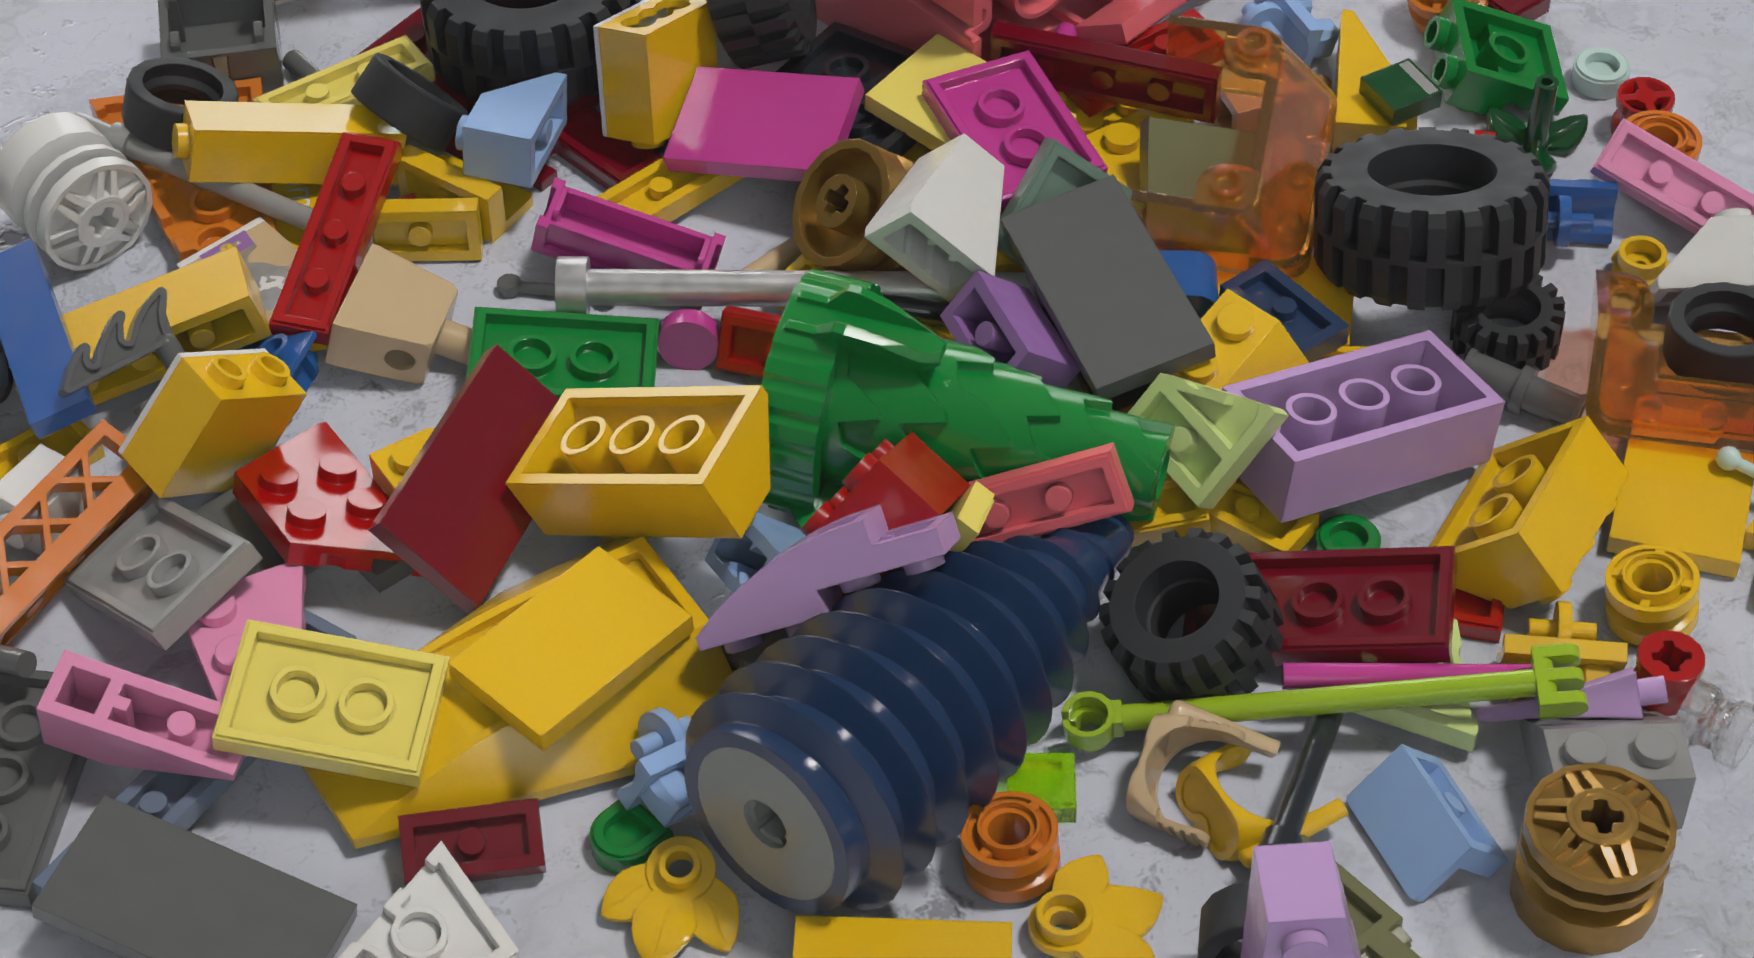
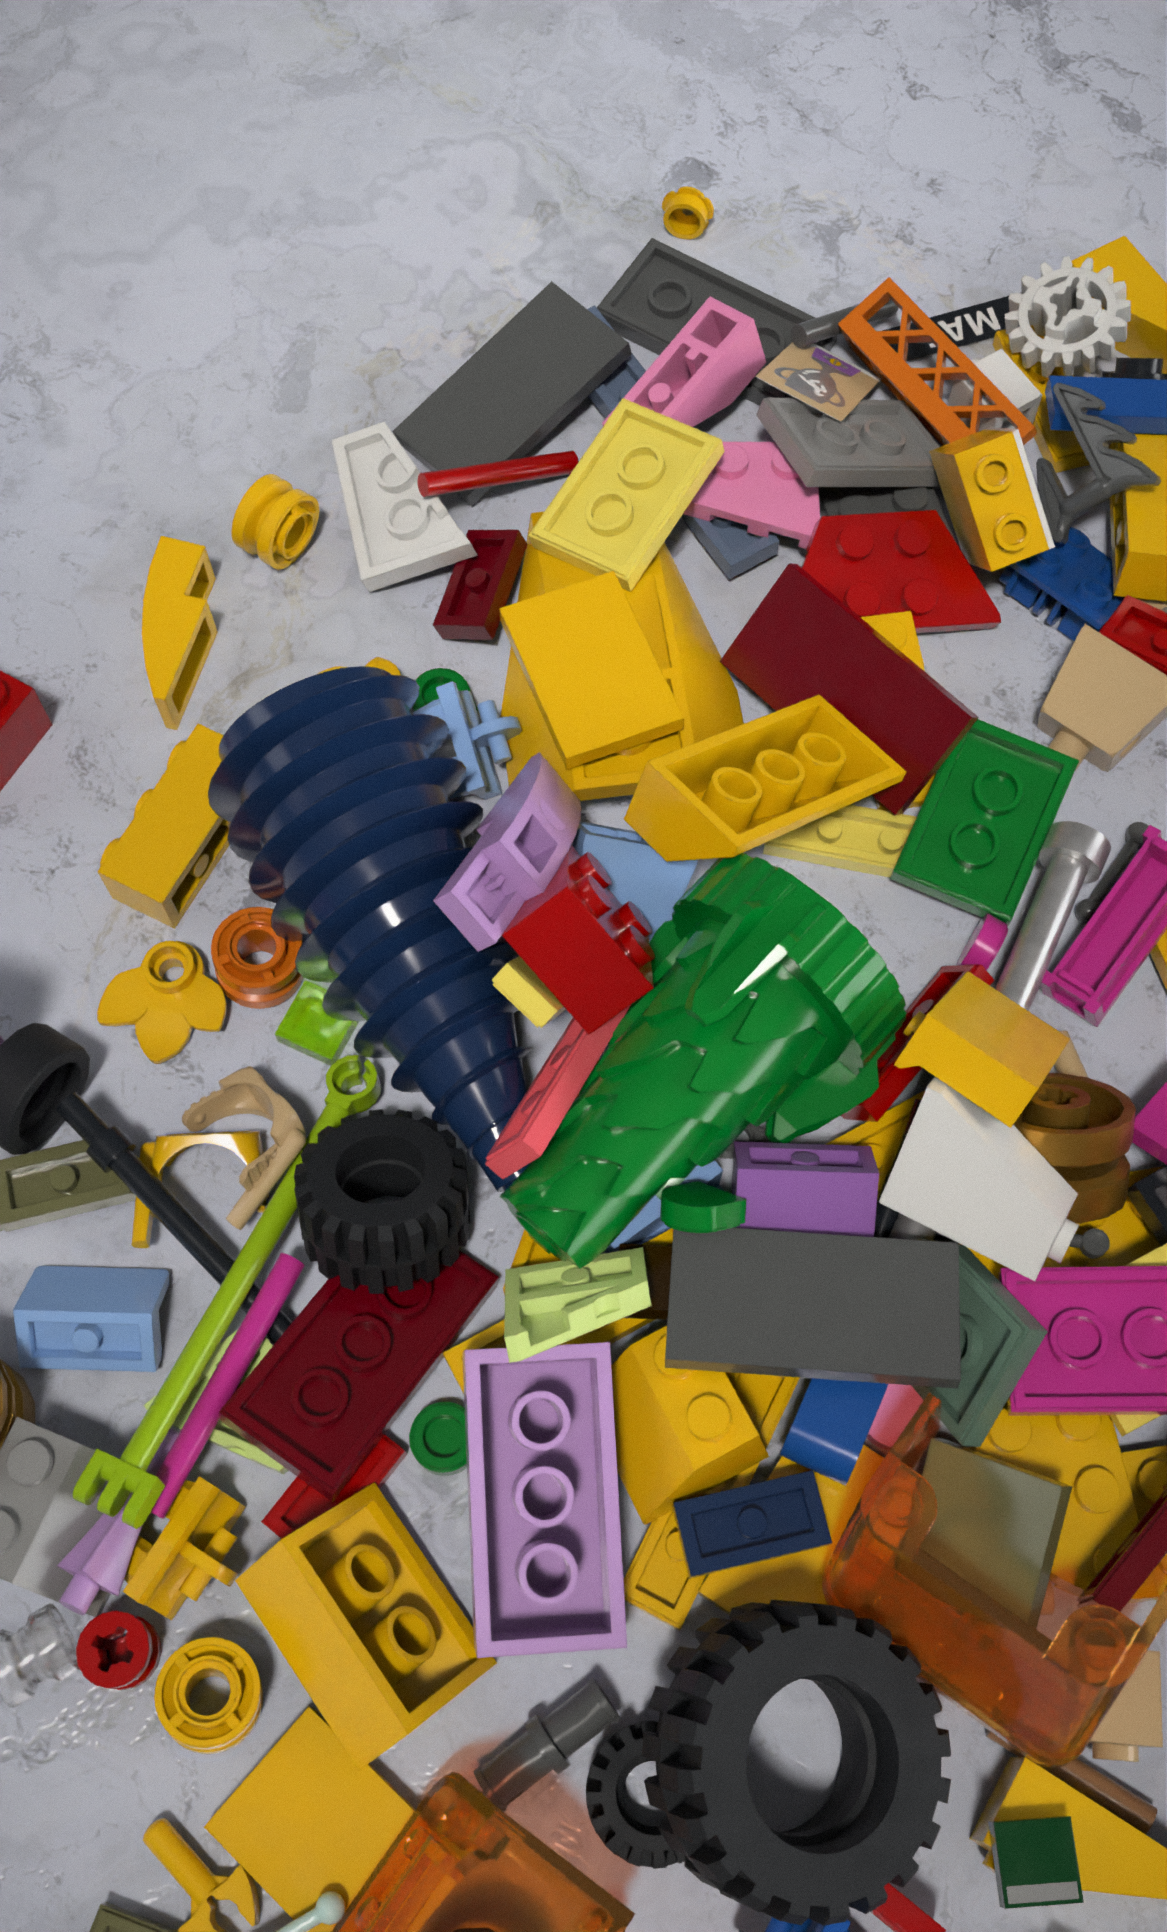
camera: 115 degrees right, 20 degrees up
(85, 624) = (819, 379): none -> sticker
(323, 873) = (496, 473): none -> red bar
(835, 225) = (984, 1047): none -> yellow container
(1075, 368) = (701, 1208): none -> green tile

